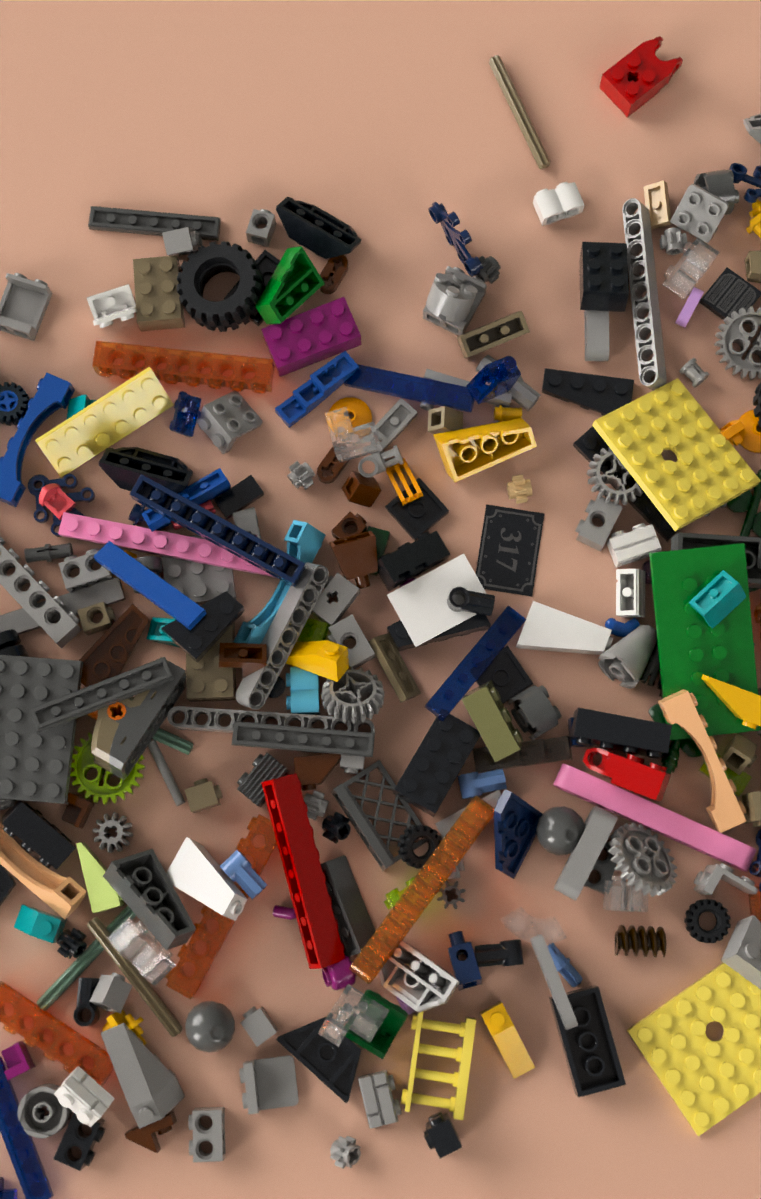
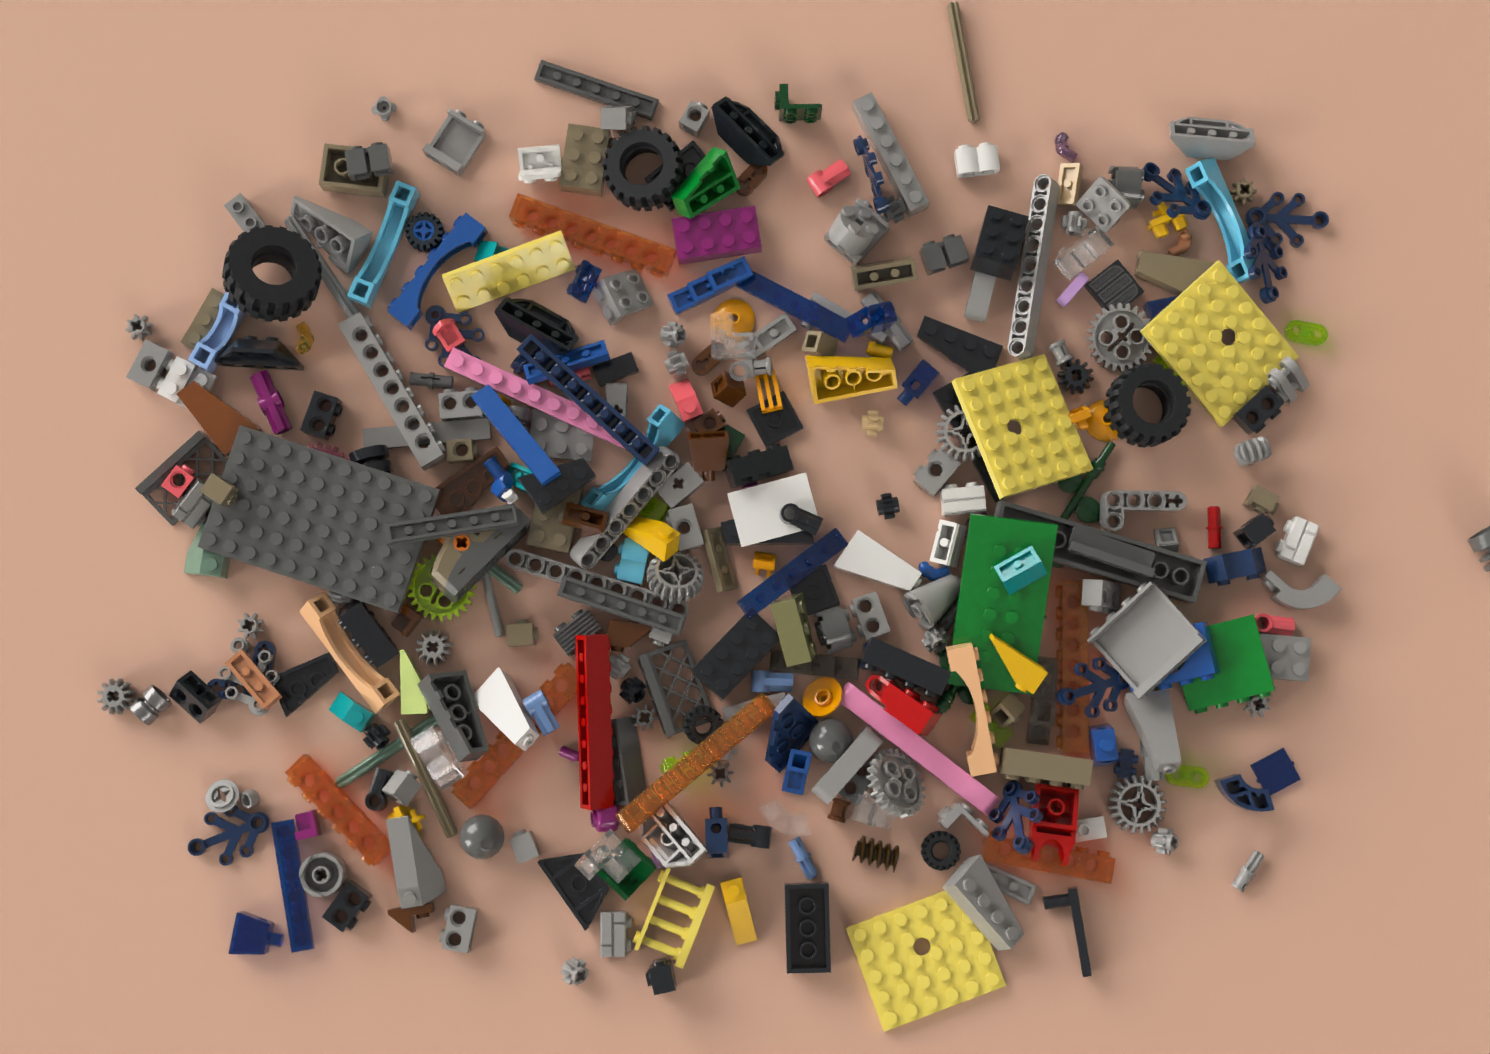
camera: 10 degrees right, 5 degrees up
(84, 1096) = (359, 870): white brick -> none
(147, 639) = (503, 482): none -> blue arm
(269, 1083) = (522, 898): light grey bracket -> none
(290, 447) = (673, 334): none -> light grey gear
(320, 511) = (686, 400): none -> coral slope
(362, 853) = (643, 723): none -> dark grey gear
(363, 195) = (795, 112): none -> dark green bracket
(408, 258) = (823, 181): none -> coral piece
(442, 657) = (764, 561): none -> light orange tile
(480, 226) = (890, 154): none -> light grey brick
(509, 550) = (849, 476): black sticker -> none
(532, 872) = (796, 771): none -> blue slope
(534, 780) = (816, 694): none -> light orange dish
(554, 299) = (953, 249): none -> dark grey piece
(554, 982) = (790, 870): light grey beam -> none
(557, 569) = (887, 506): none -> black gear
(560, 426) = (922, 373): none -> clear blue torso
(573, 685) = (875, 614): none -> light grey brick
(587, 903) = (839, 810): none -> reddish brown bush
(638, 76) = (1089, 50): red brick -> none
(640, 170) = (1062, 147): none -> arm
(643, 697) = (935, 639): none -> light grey gear
(724, 395) = (1067, 376): none -> black gear

